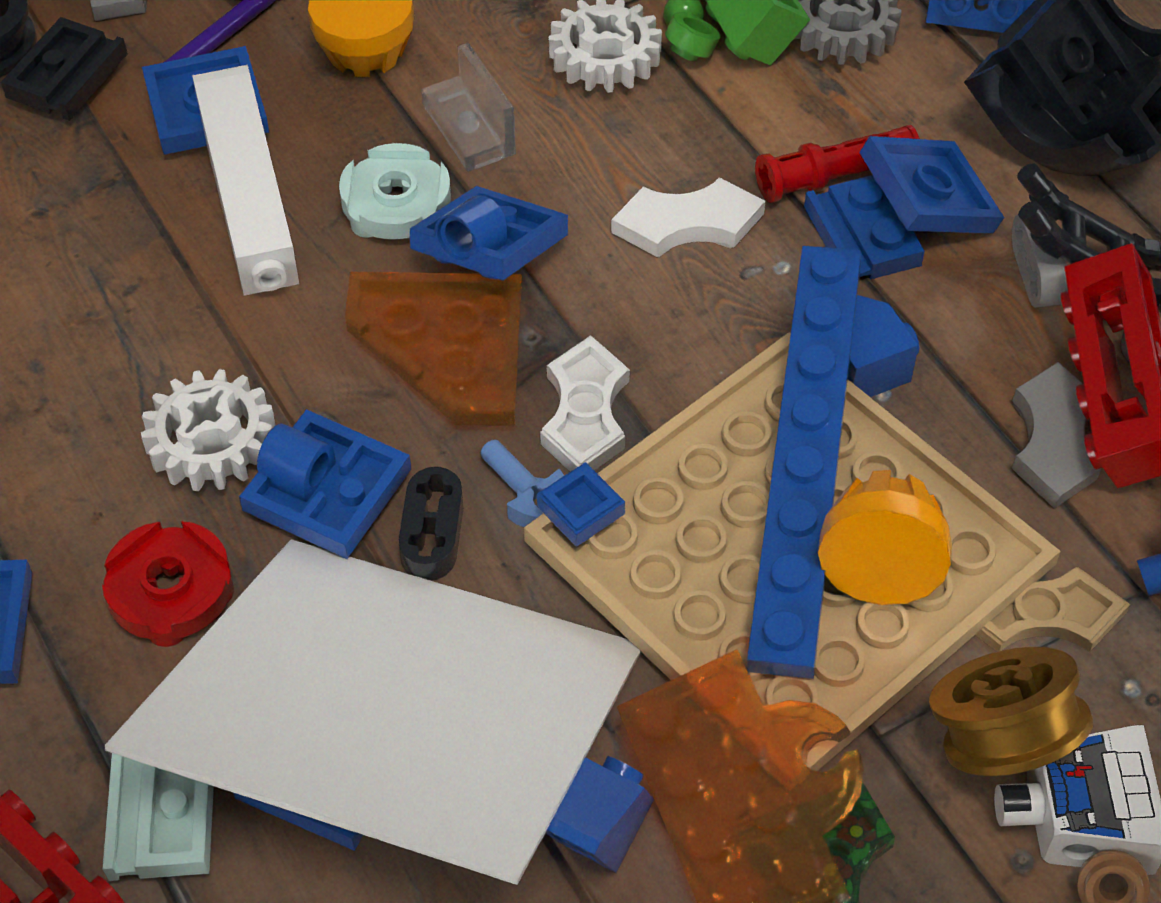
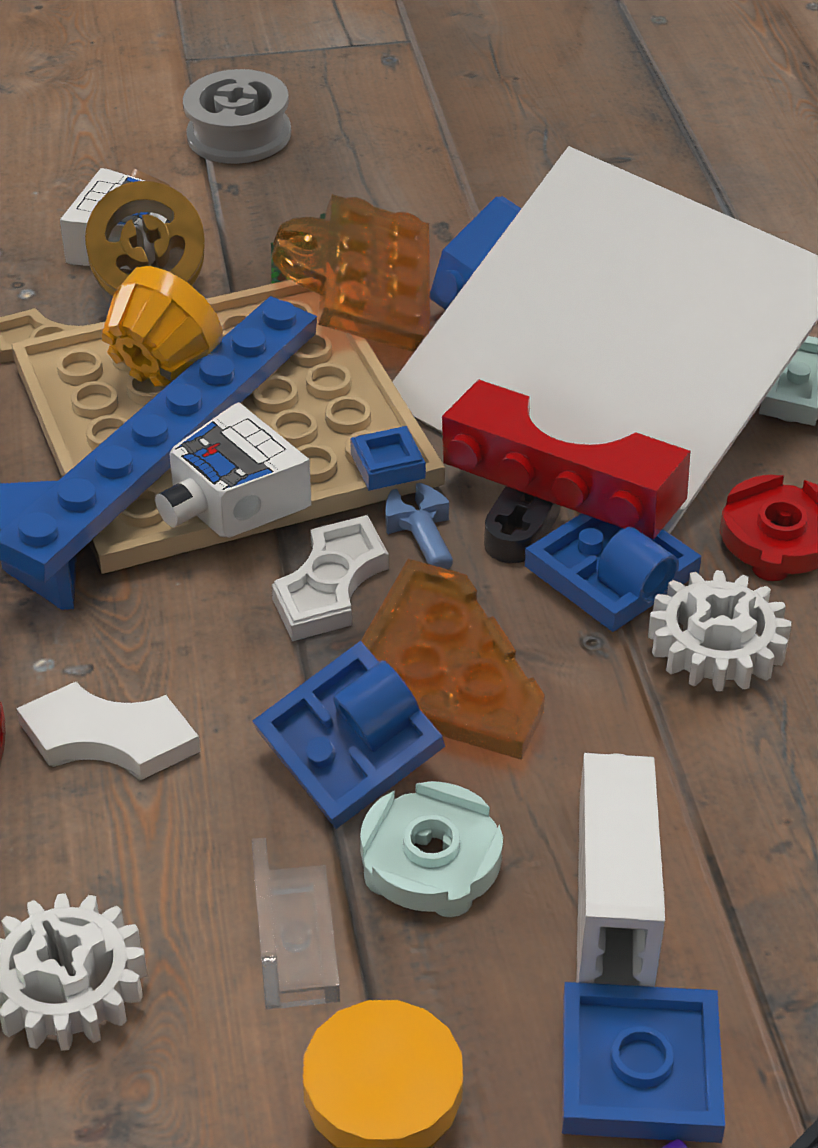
camera: 160 degrees left, 10 degrees down
(327, 512) = (619, 482): none -> red arch
(705, 410) = (235, 475): none -> white torso

